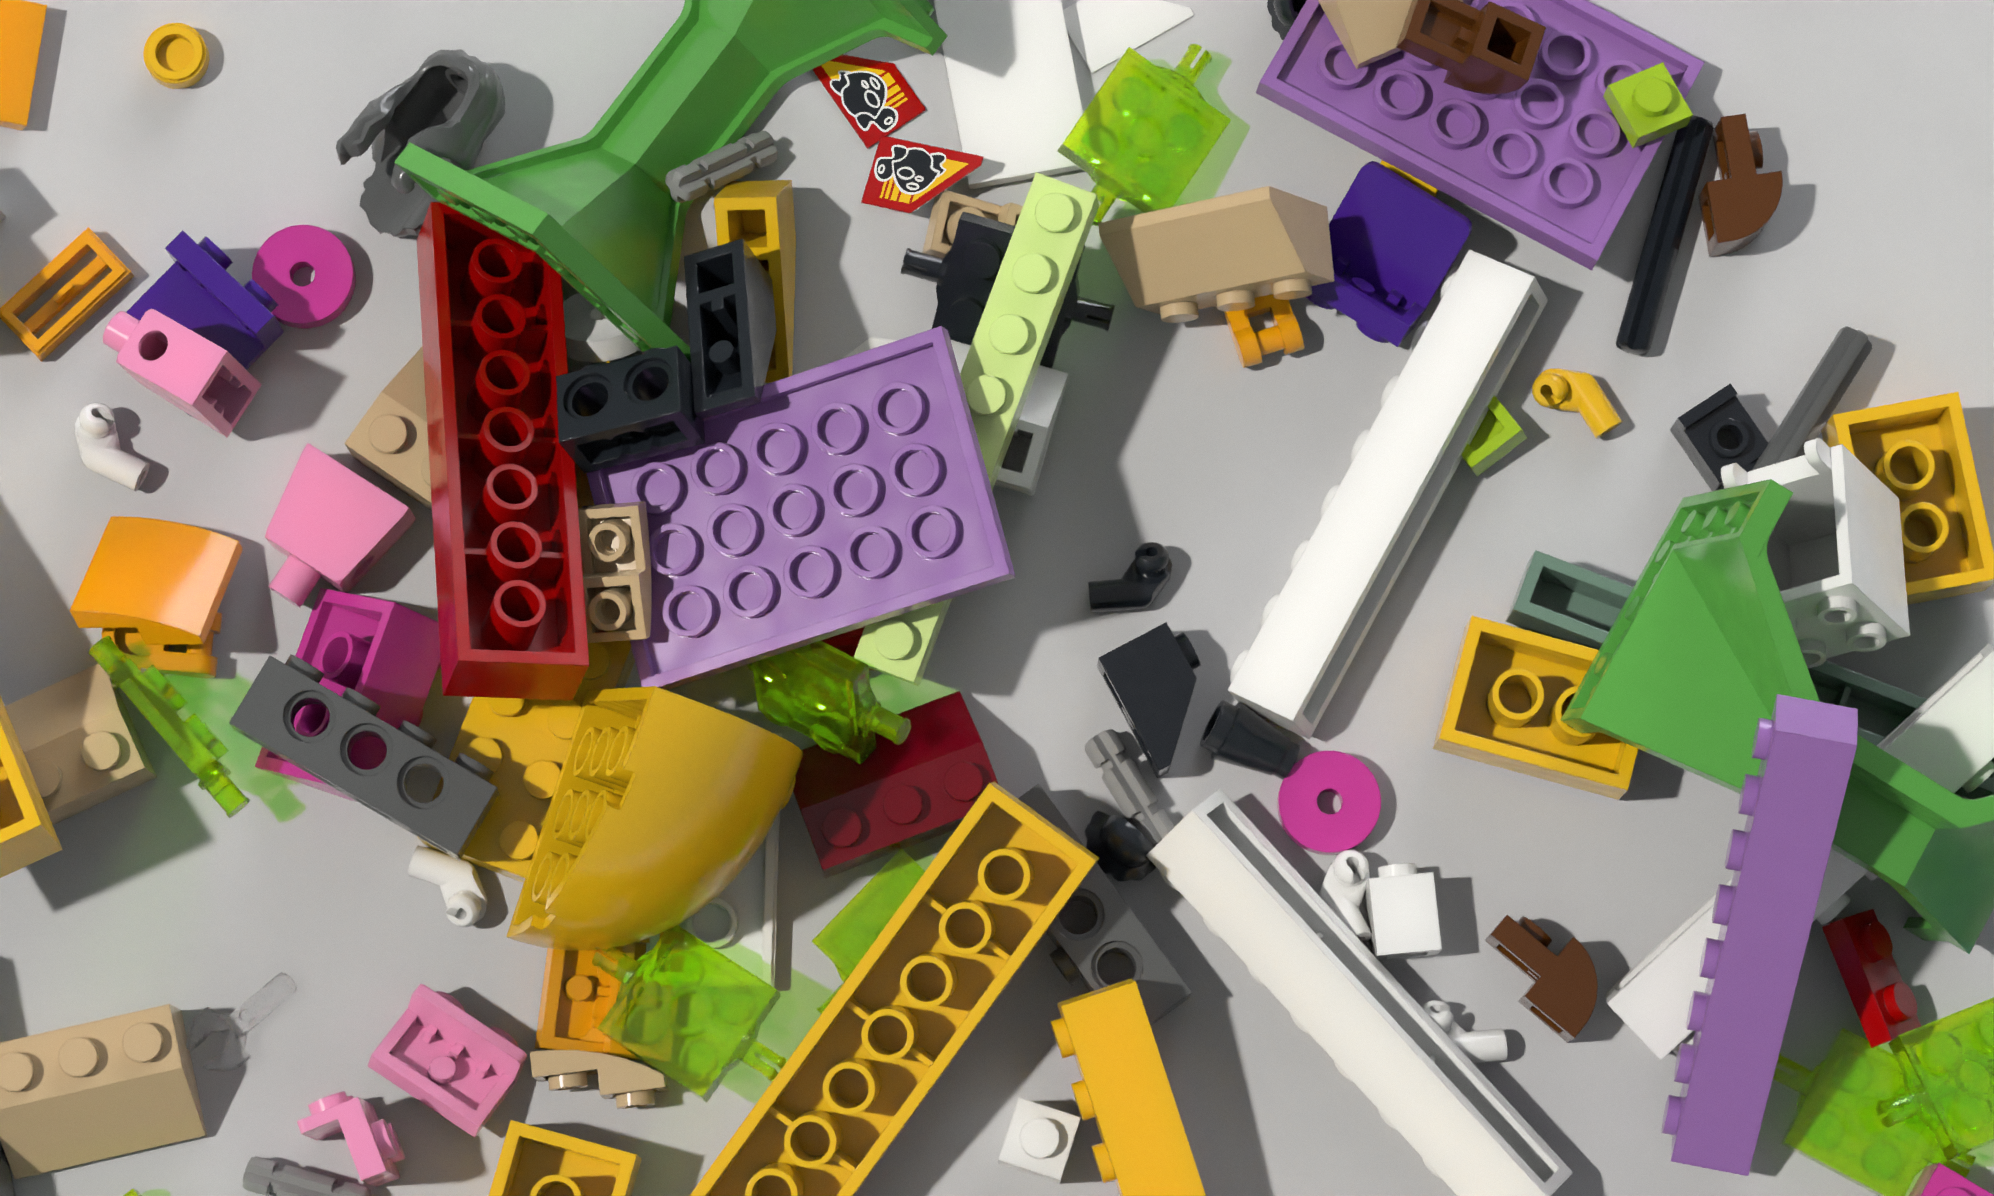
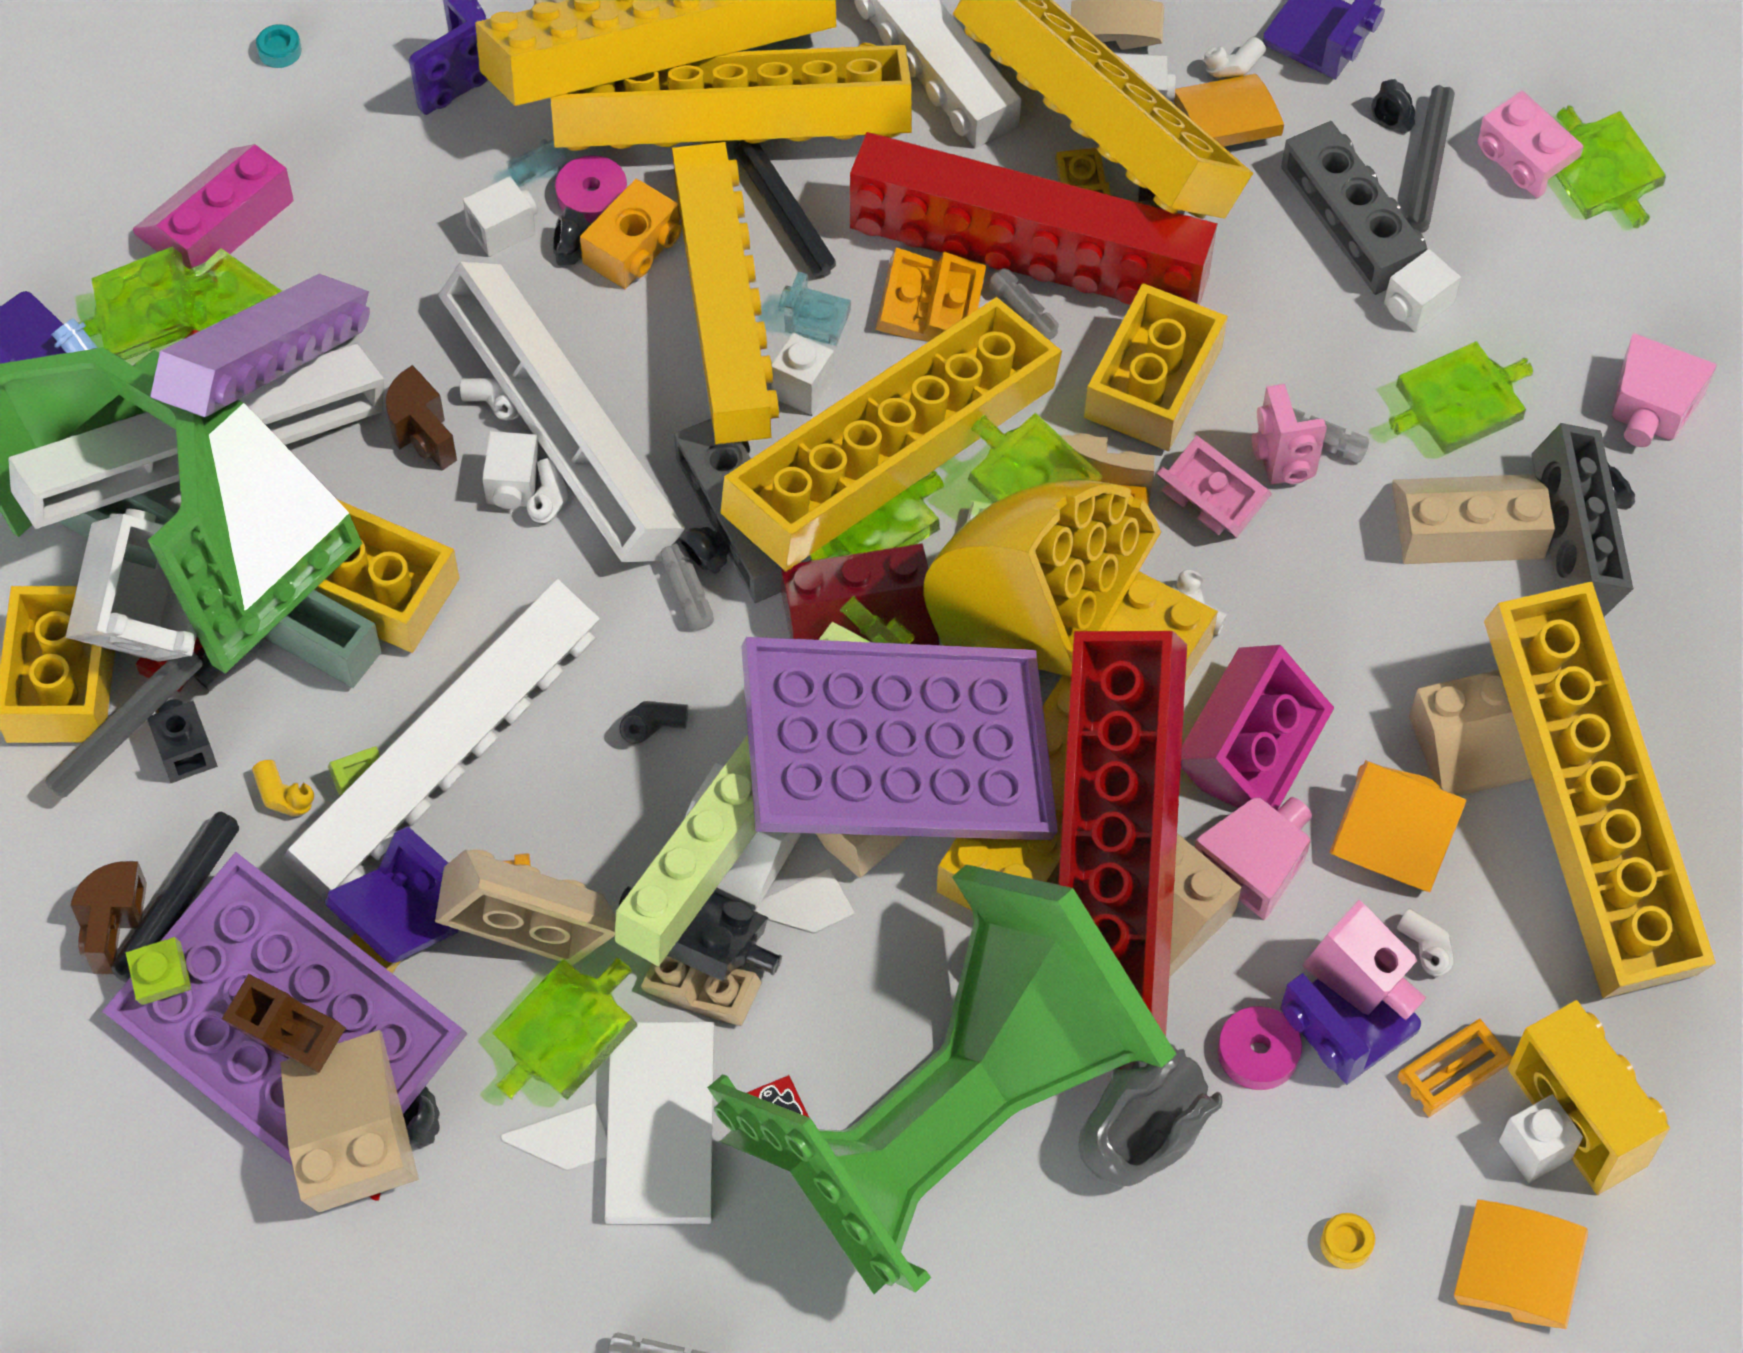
camera: 170 degrees left, 20 degrees down
(188, 737) = (1395, 719): clear neon green plate -> none
(239, 1023) = (1363, 543): clear bar -> none
(268, 720) = (1240, 619): dark grey brick -> none
(616, 571) = (1042, 728): tan slope -> none
(628, 409) = (1014, 819): black brick -> none
(721, 166) = (909, 1060): light grey axle -> none
(728, 327) = (927, 883): black slope -> none
(766, 221) = (895, 979): yellow slope -> none
(913, 173) = (756, 1037): sticker -> none
(1153, 689) = (654, 640): black slope -> none
(1248, 741) = (600, 597): black cone -> none
(1336, 774) = (544, 538): dark pink piece -> none

